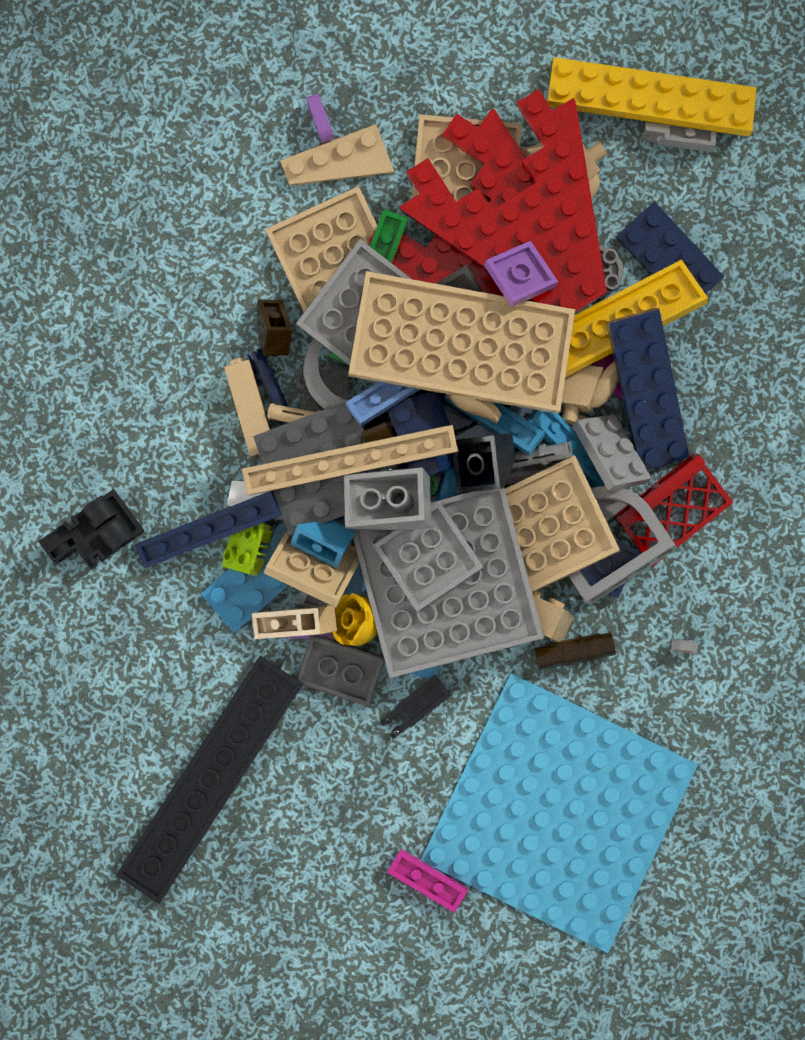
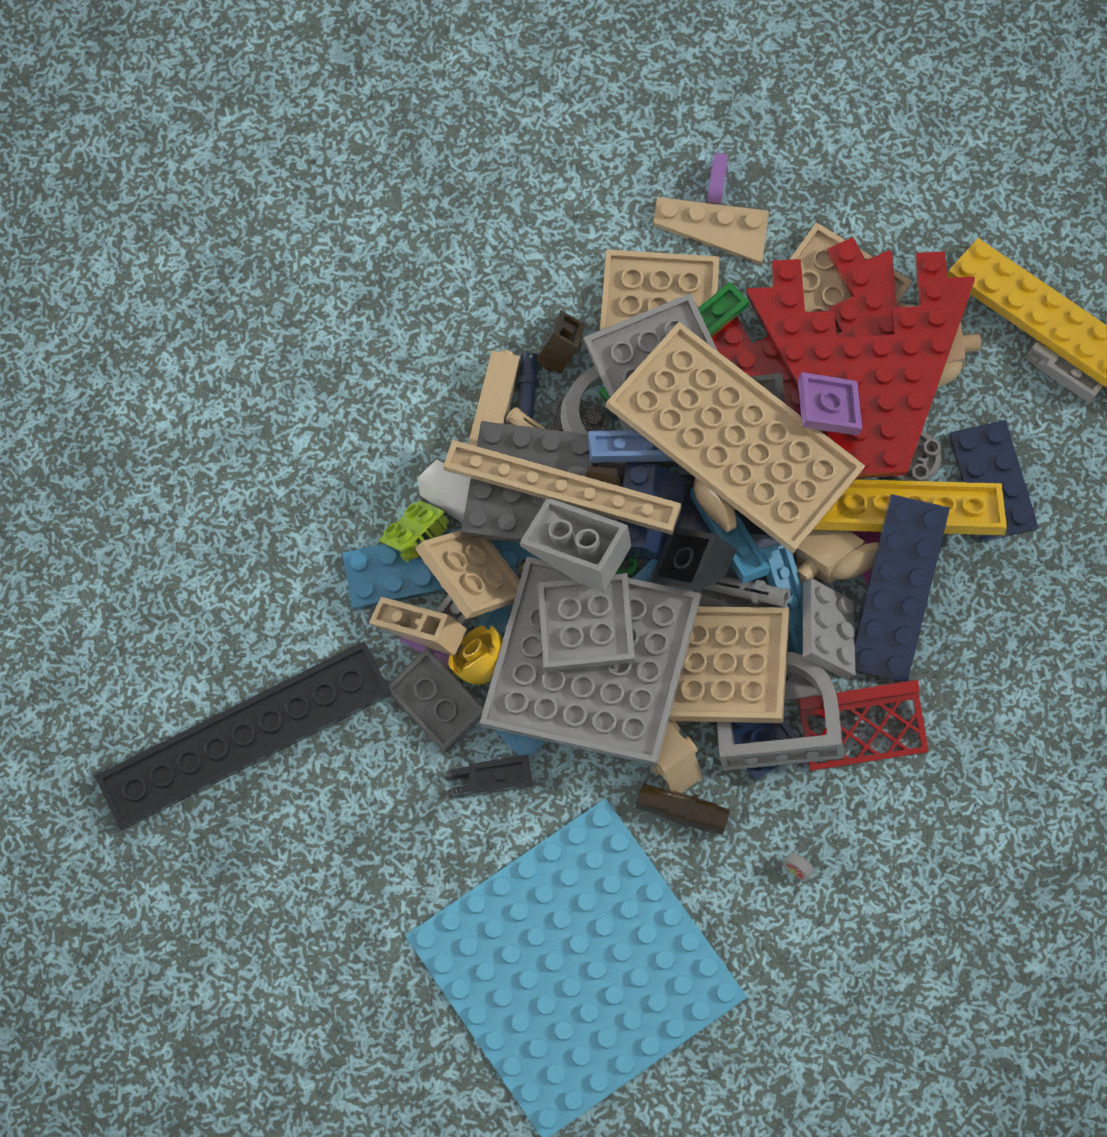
camera: 30 degrees right, 15 degrees down
(97, 531) = (279, 438): black plate -> none
(208, 529) = (386, 490): dark blue plate -> none
(323, 540) = (493, 556): dark azure slope -> none
(427, 880) = (401, 957): dark pink plate -> none

